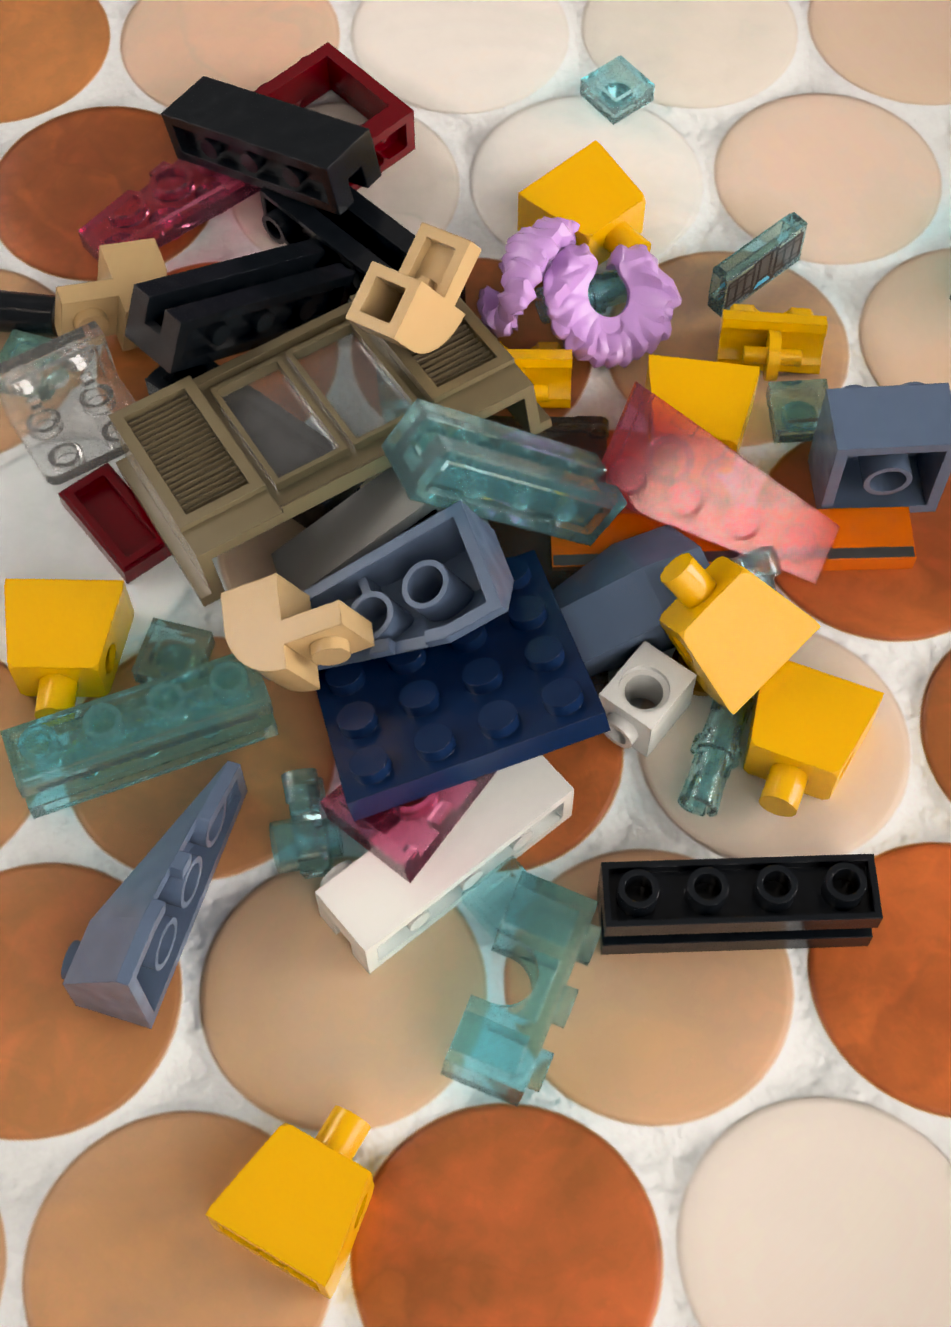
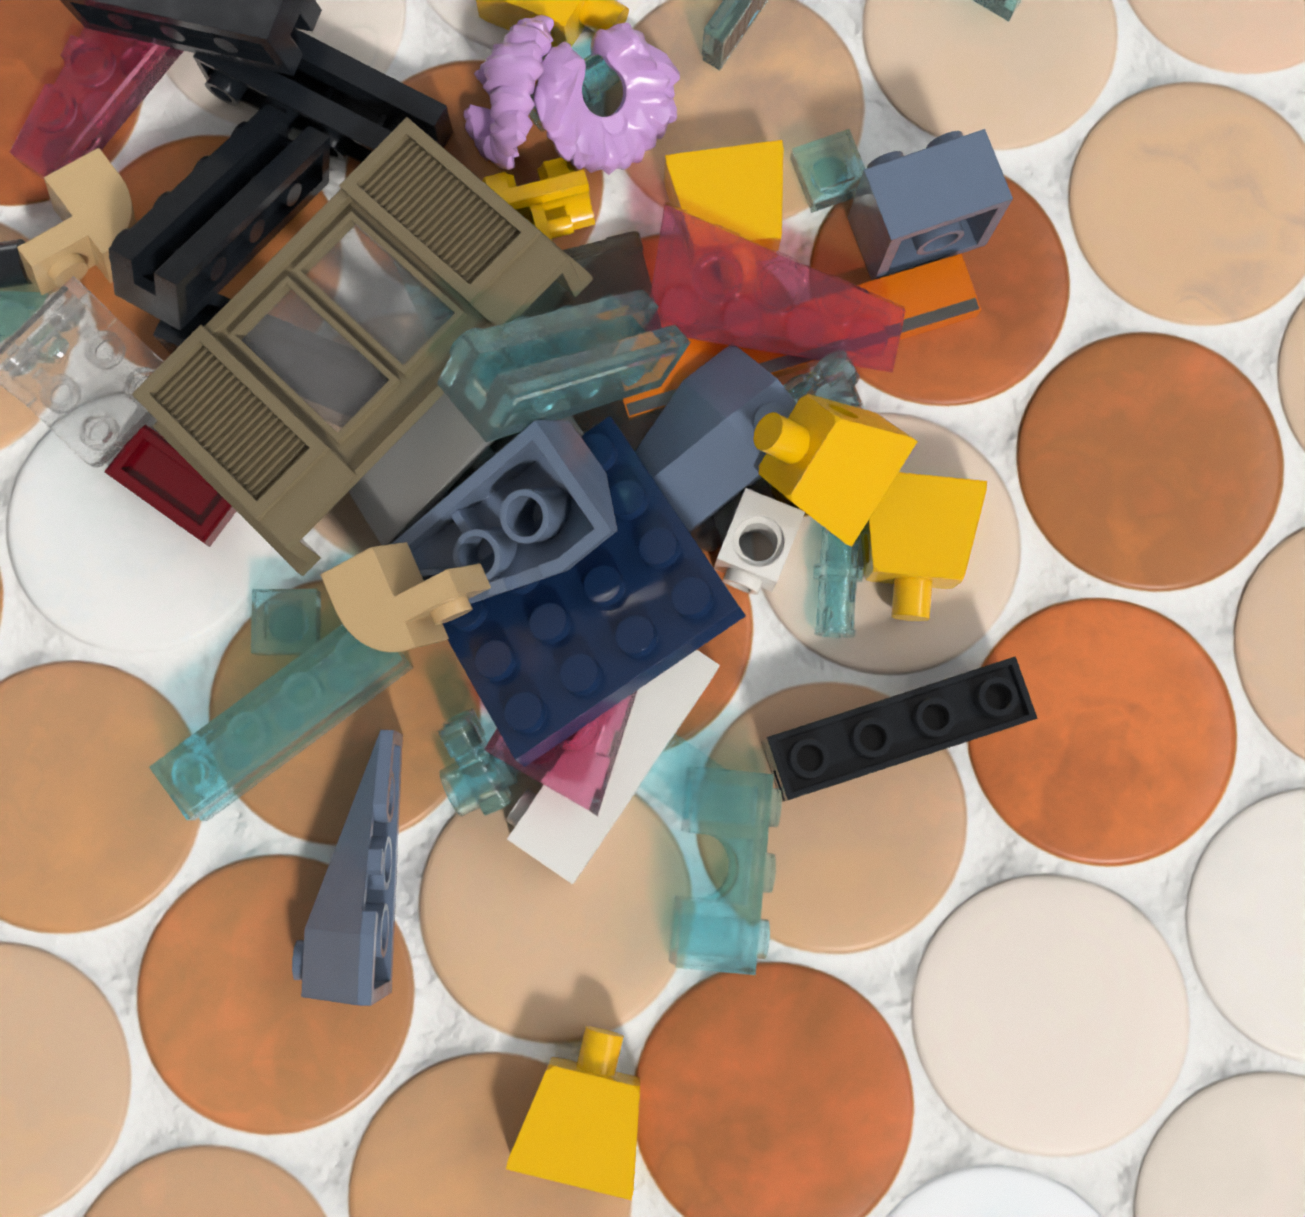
camera: 20 degrees left, 20 degrees up
(65, 638) = (171, 638): yellow torso -> none
(419, 300) = (422, 196): tan brick -> none
(772, 340) = (781, 96): yellow hips -> none

